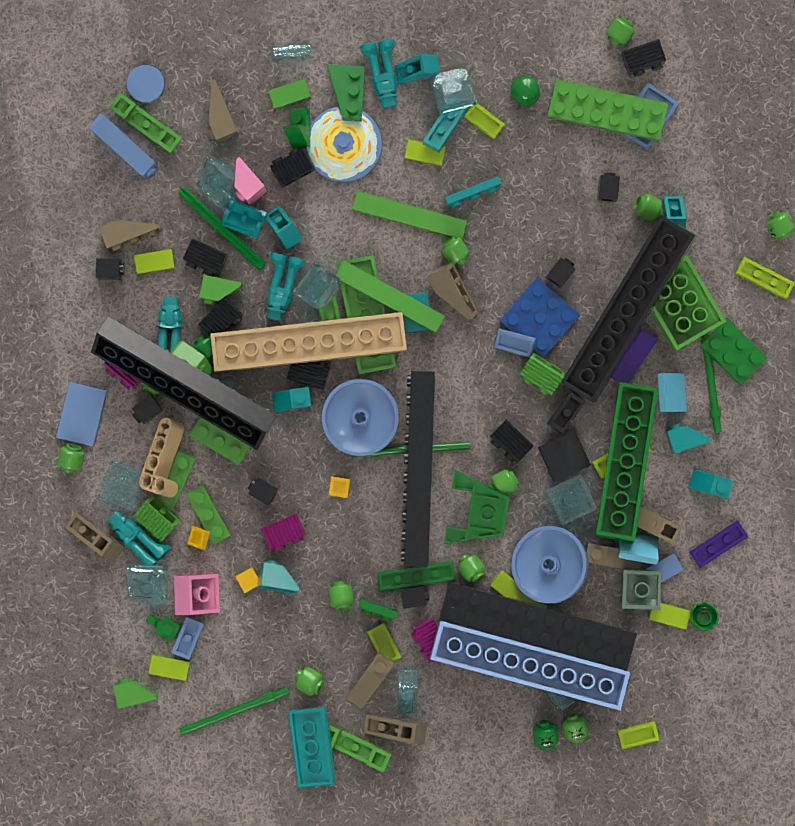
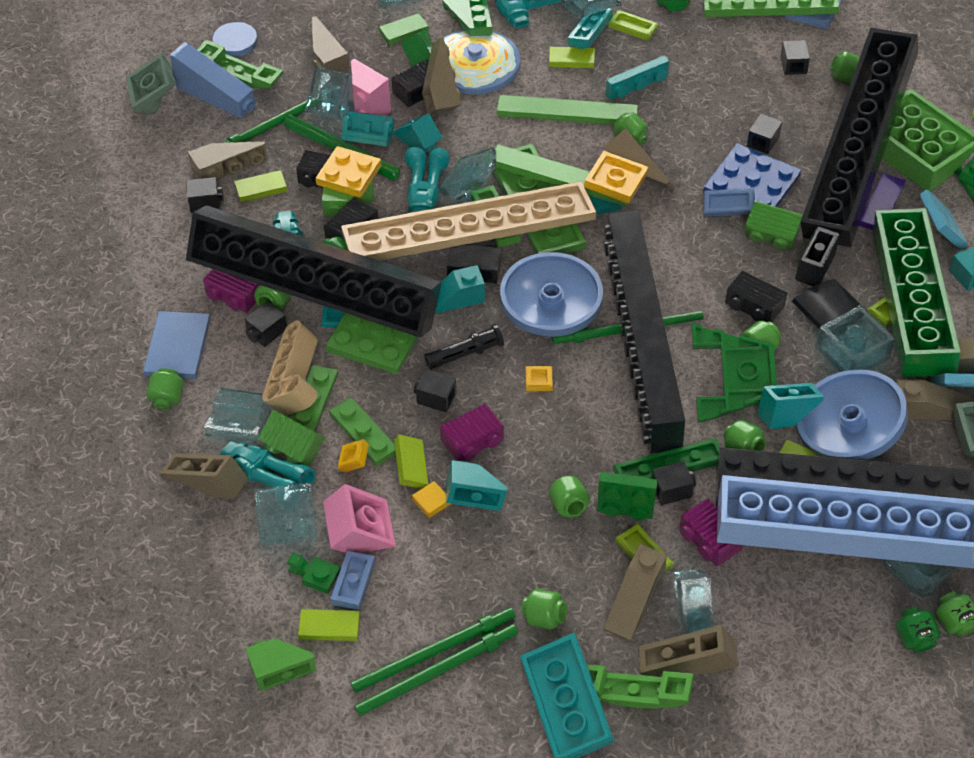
camera: 10 degrees left, 35 degrees down
(72, 142) = (150, 84): none -> sand green slope
(137, 208) = (267, 125): none -> green bar
(222, 273) = (348, 172): none -> yellow plate
(238, 548) = (411, 461): none -> lime tile
(270, 684) = (484, 625): none -> green bar
(298, 450) = (474, 344): none -> black pin
(306, 184) = (439, 85): none -> dark tan slope
(430, 313) = (616, 177): none -> yellow plate
(509, 546) = (787, 404): none -> teal slope

